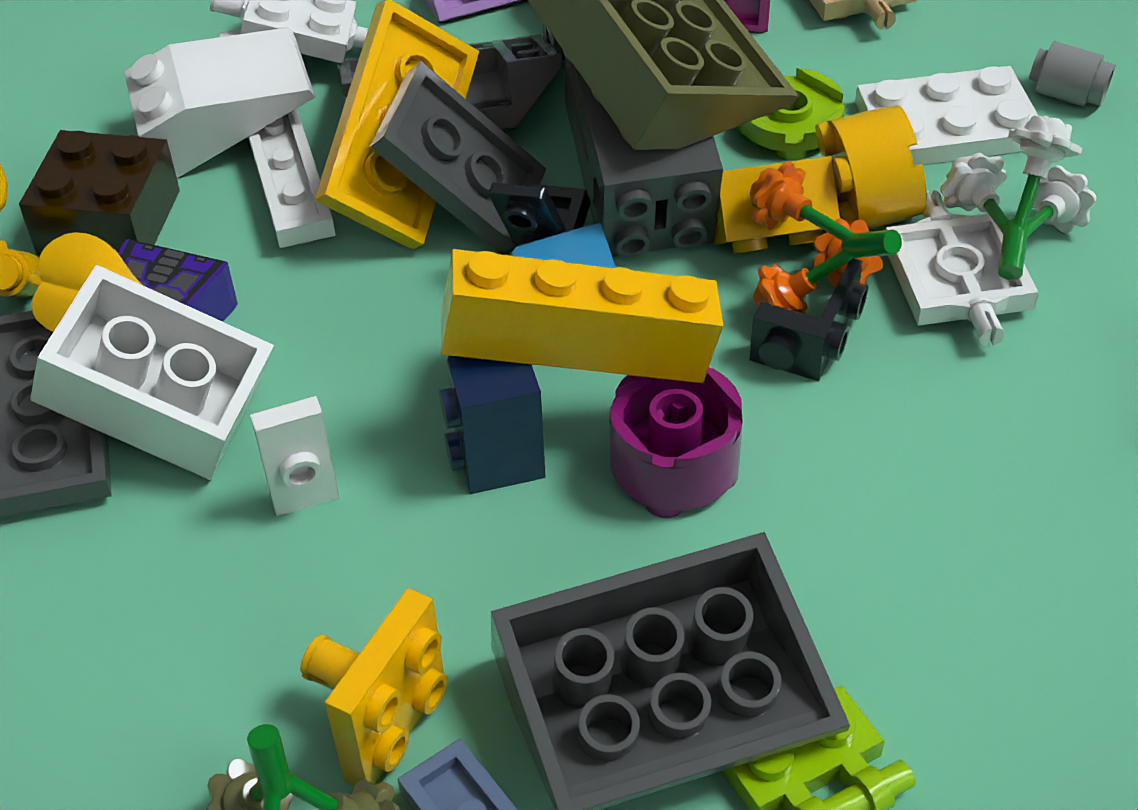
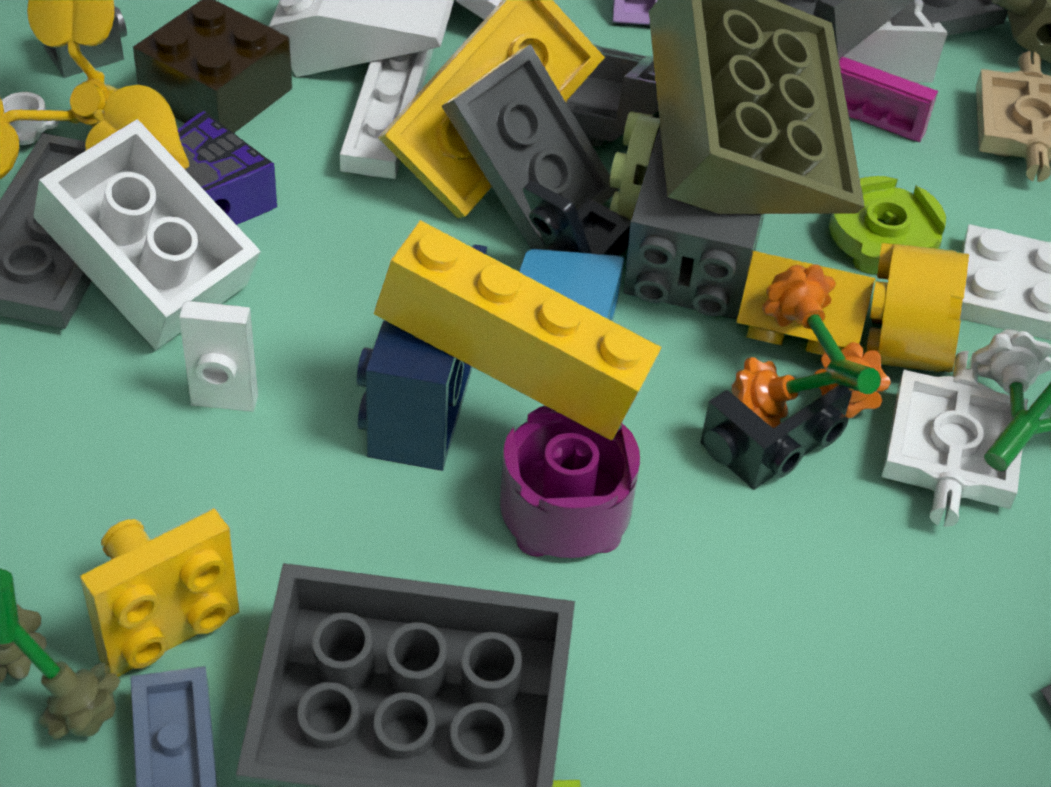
camera: 20 degrees right, 0 degrees up
(562, 138) = (630, 168): none -> yellowish green plate

